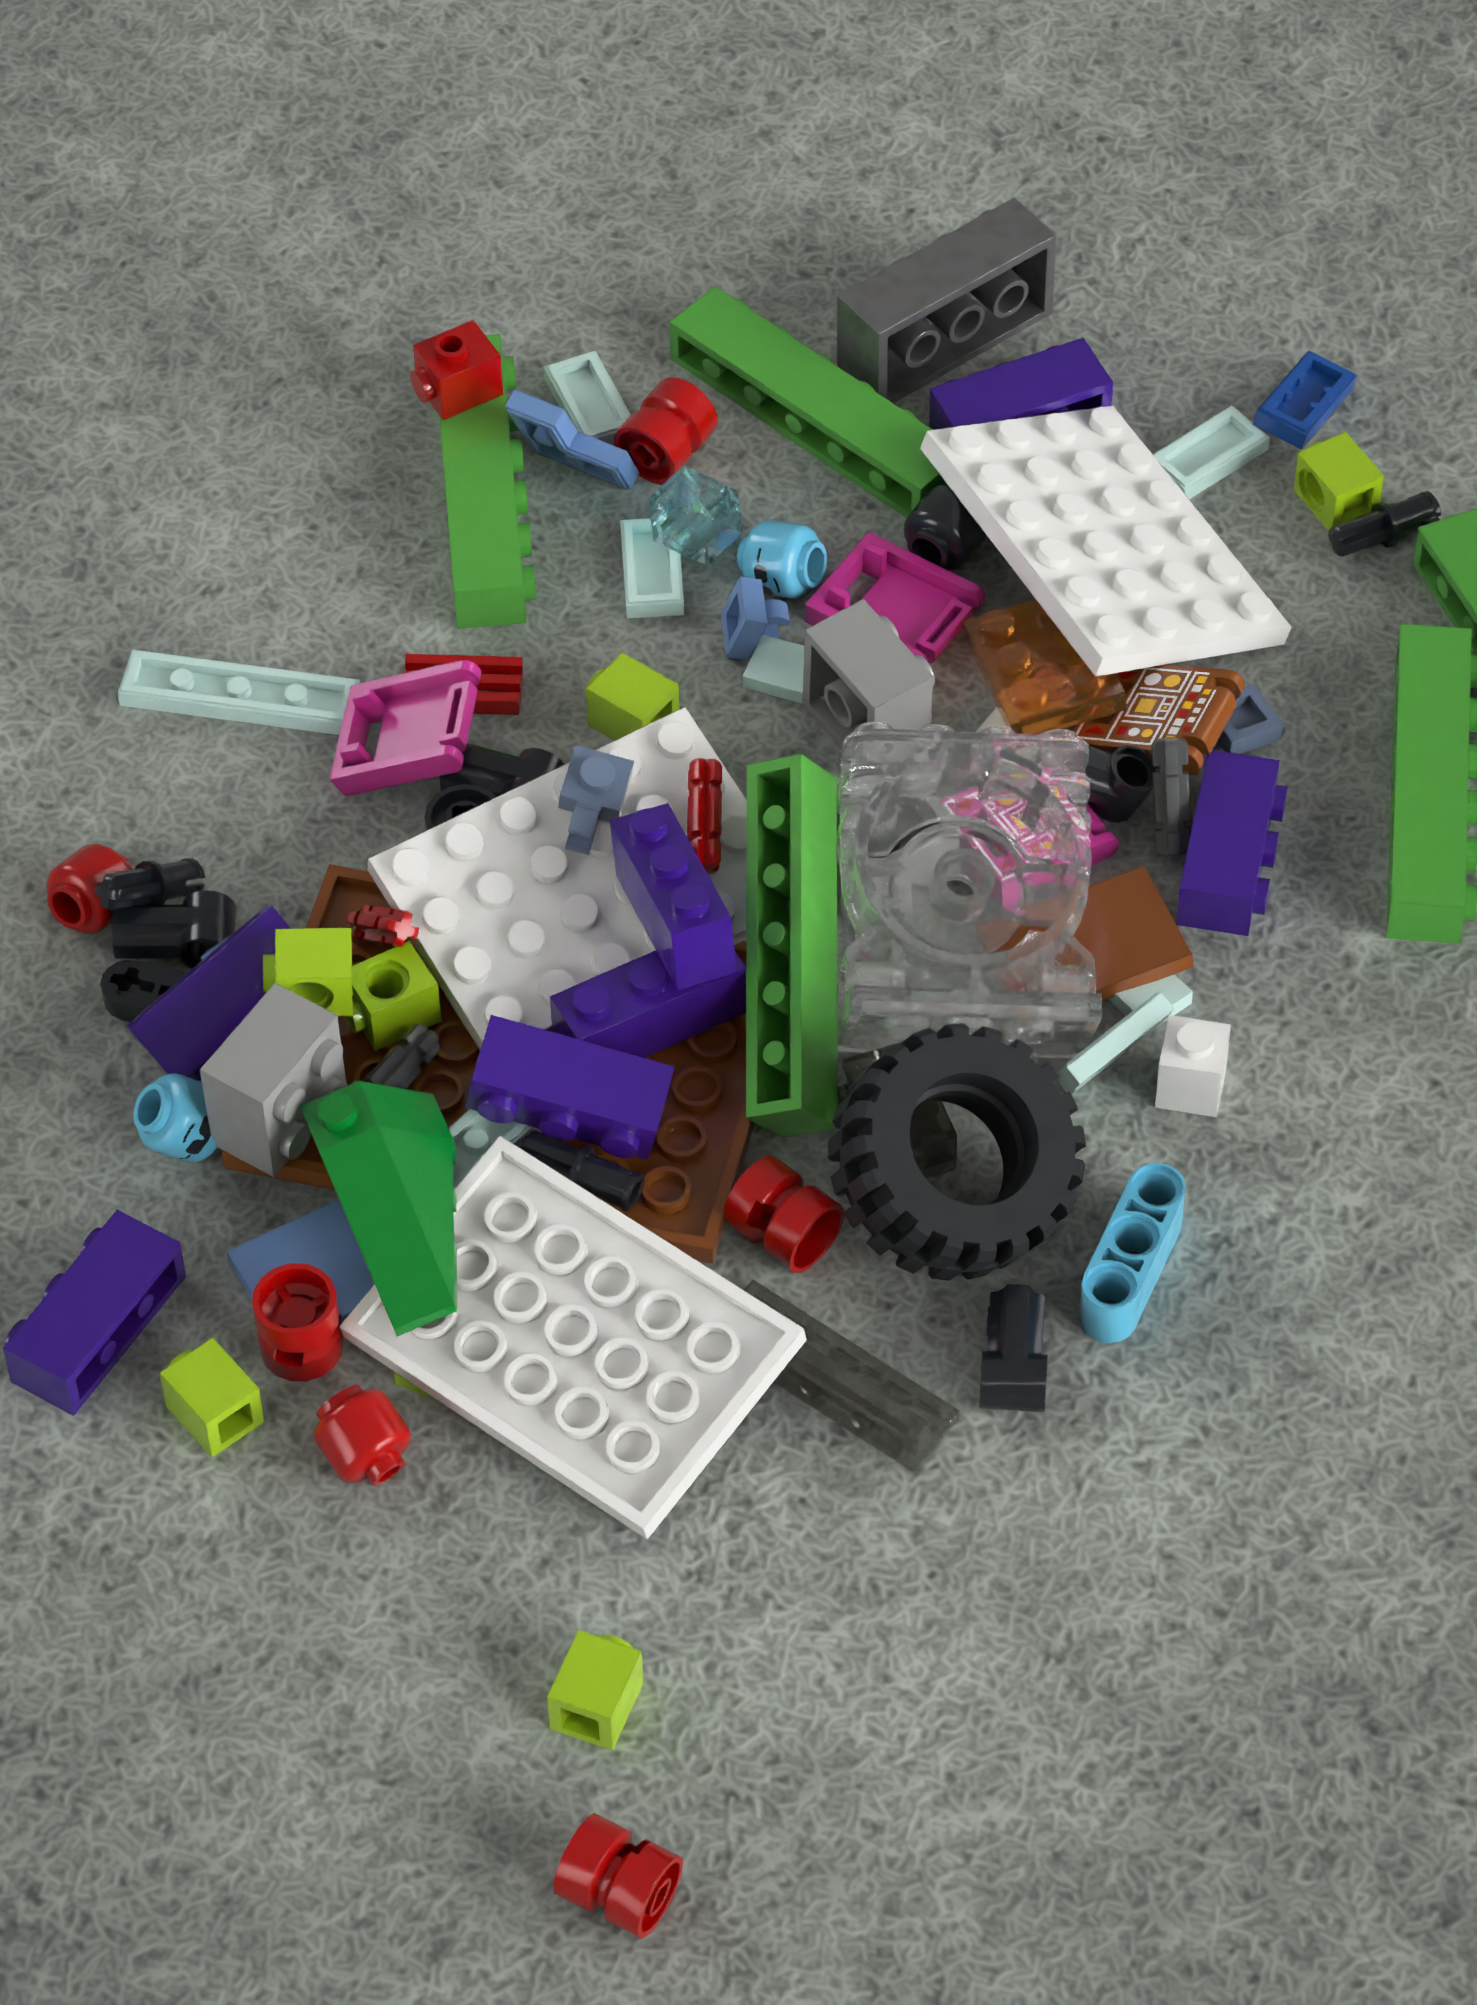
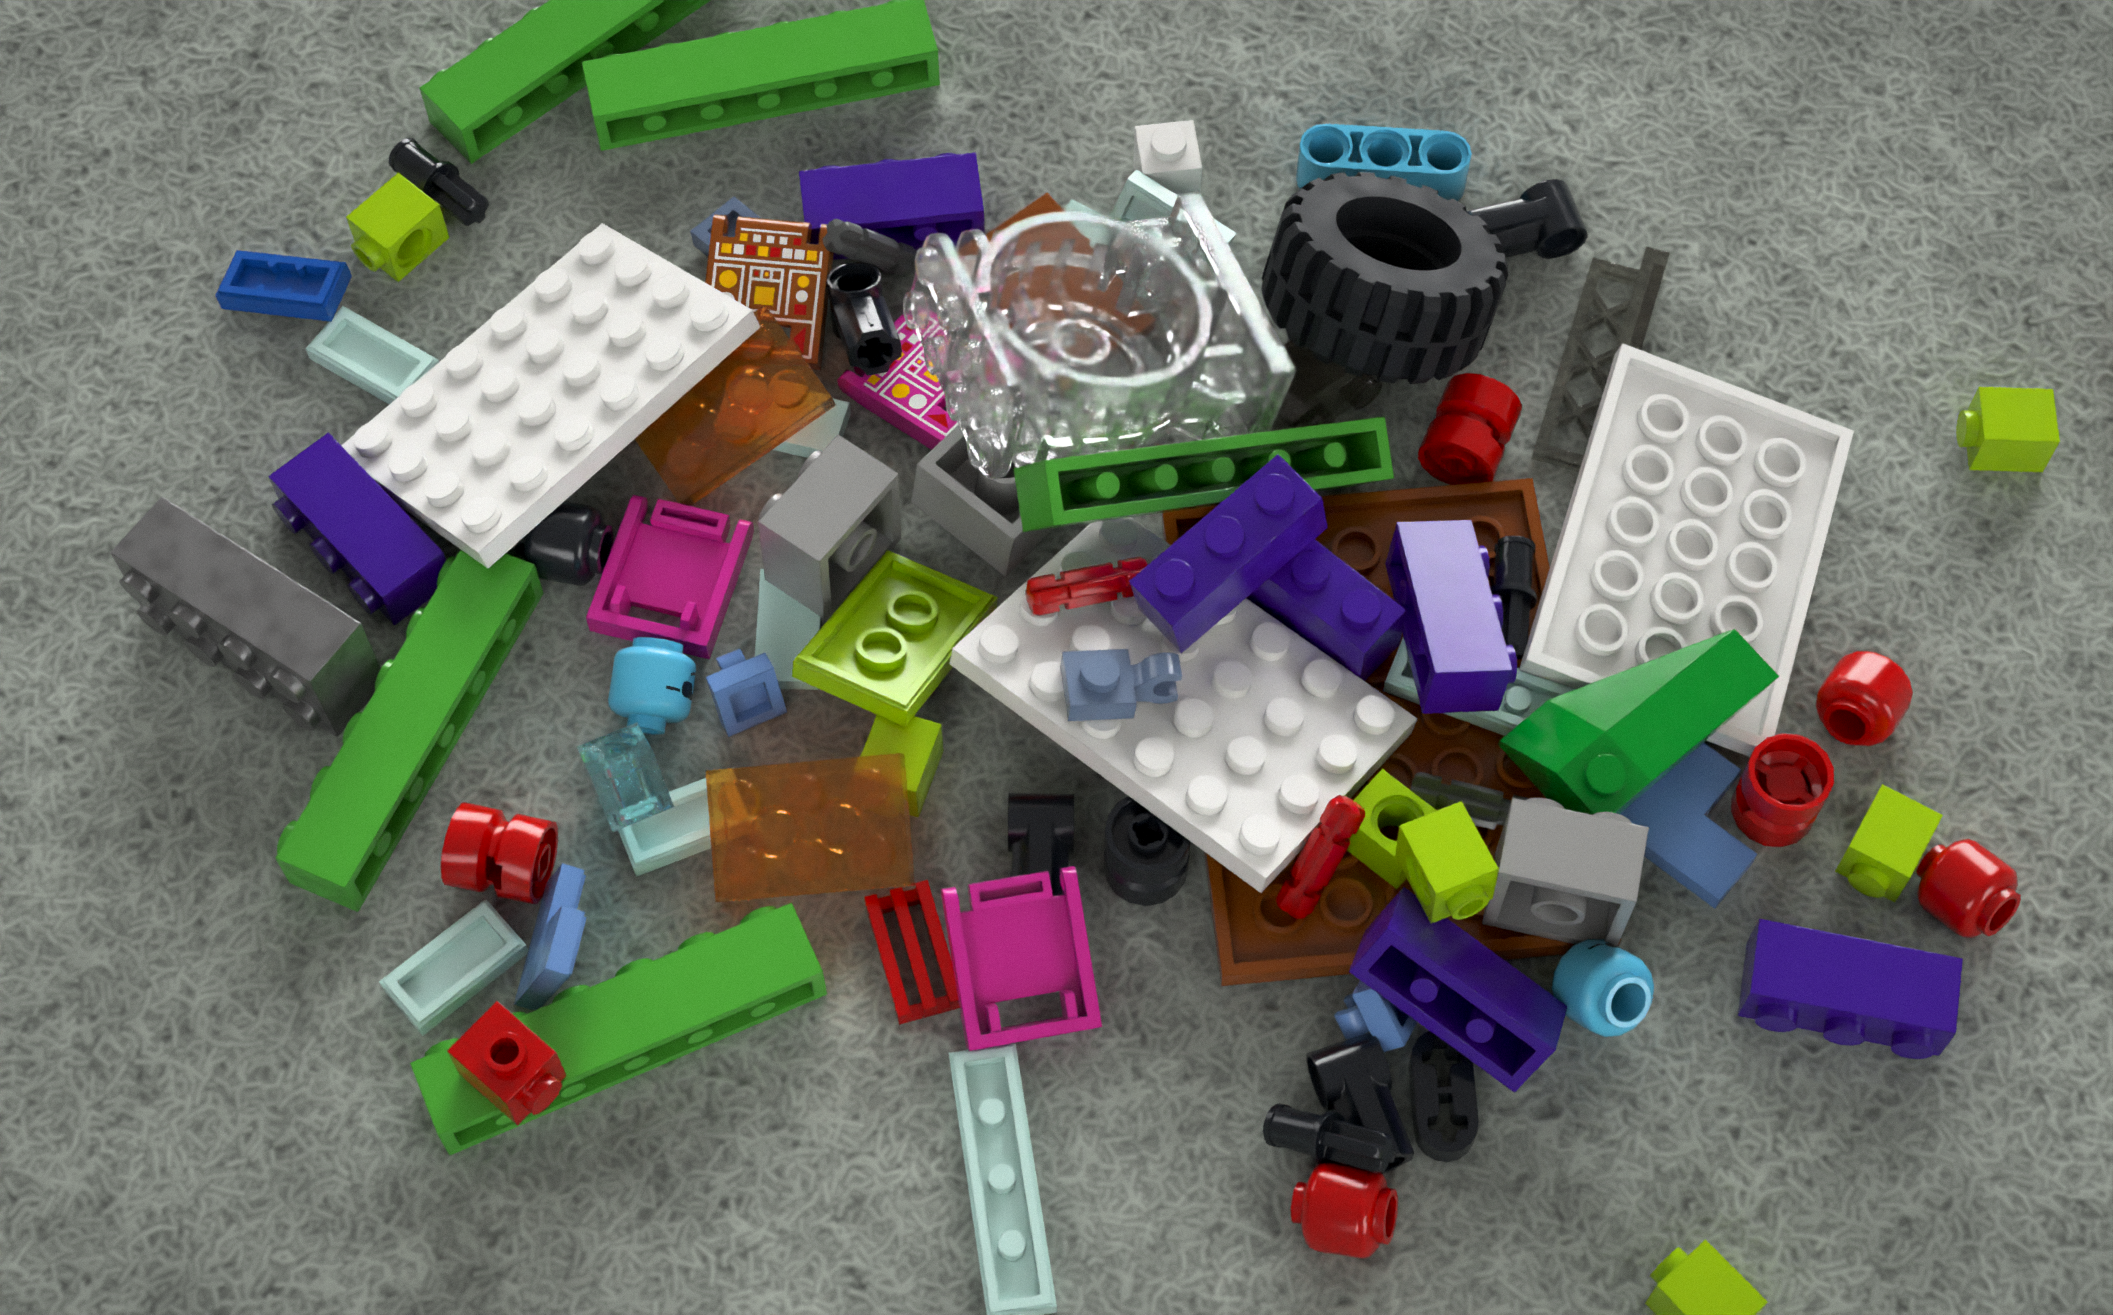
camera: 110 degrees left, 10 degrees up
(138, 1441) = (1968, 888): none -> red head
(591, 621) = (810, 827): none -> clear orange plate
(745, 707) = (893, 638): none -> lime tile

